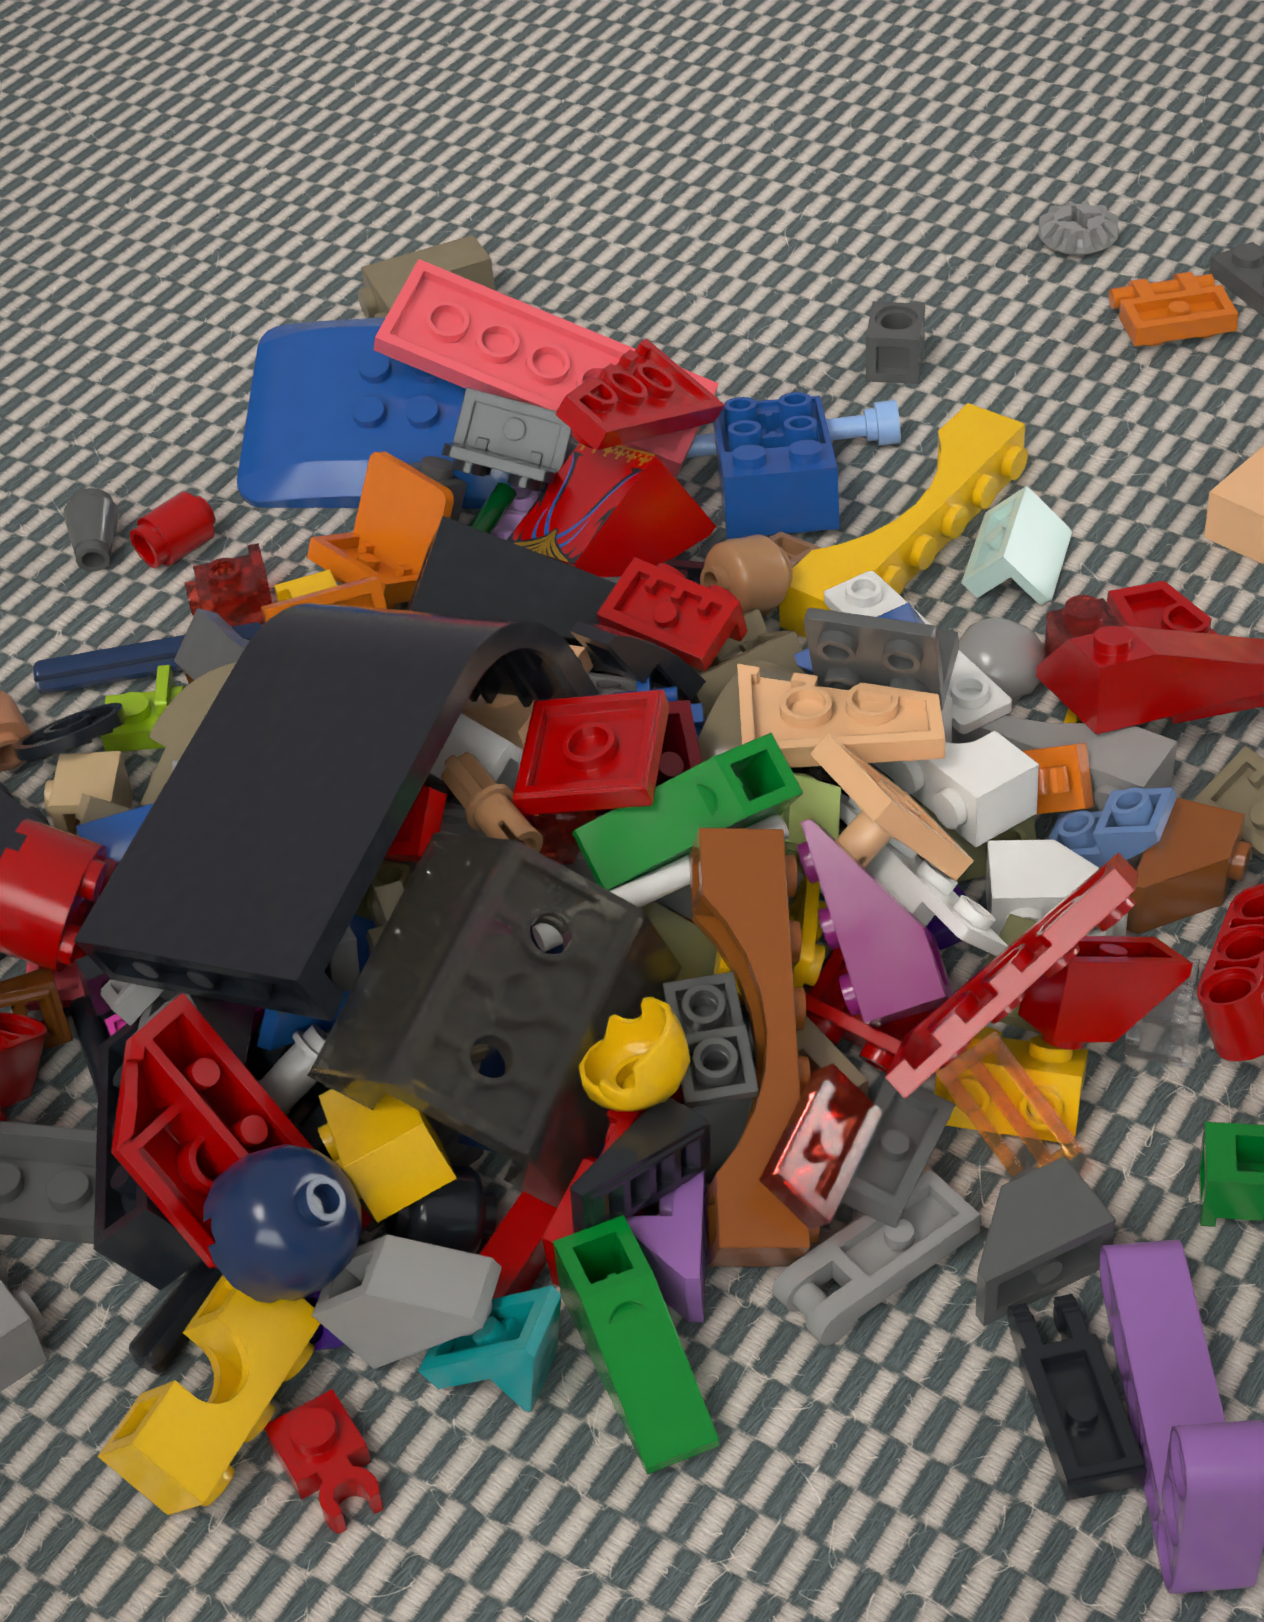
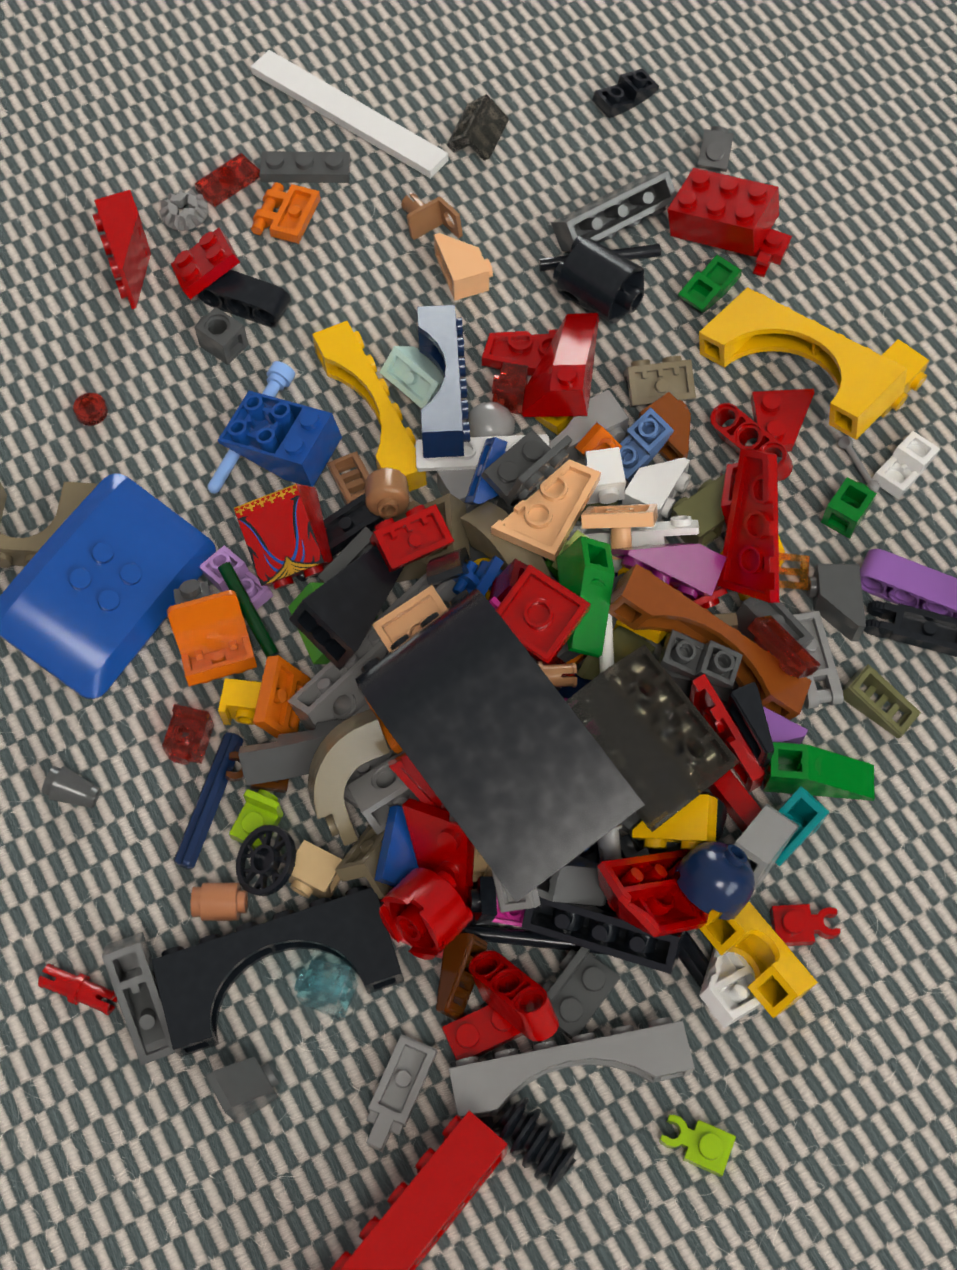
camera: 65 degrees left, 20 degrees up
(108, 1360) = (726, 987): none -> white wing
(173, 530) = (107, 744): red brick -> none
(505, 348) = (147, 499): coral plate -> none
(509, 438) = (197, 548): bracket -> none
(637, 401) = (233, 469): red wing -> none
(637, 1059) = (718, 691): yellow hair -> none
(679, 300) = (90, 409): none -> clear red tile
(873, 1342) = (886, 692): none -> olive slope
(929, 565) = (442, 417): none -> arch
(944, 192) = (125, 240): none -> red slope
(984, 333) = (247, 298): none -> black beam
(991, 263) = (204, 262): none -> red plate
(1171, 240) = (227, 180): none -> clear red plate

